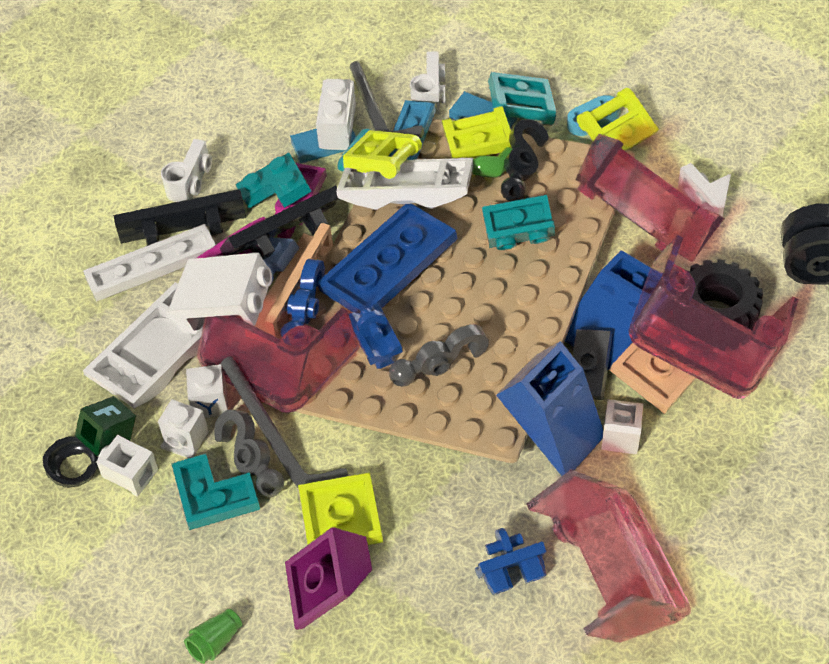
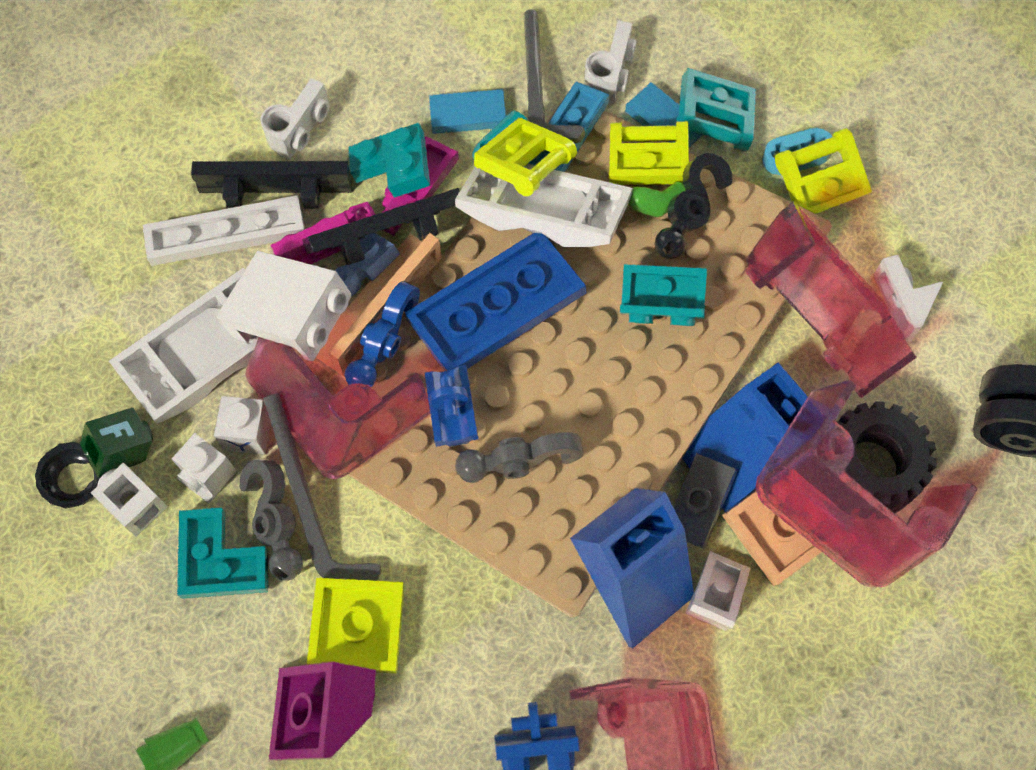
camera: 10 degrees right, 15 degrees up
(336, 114) = (486, 83): white brick -> none

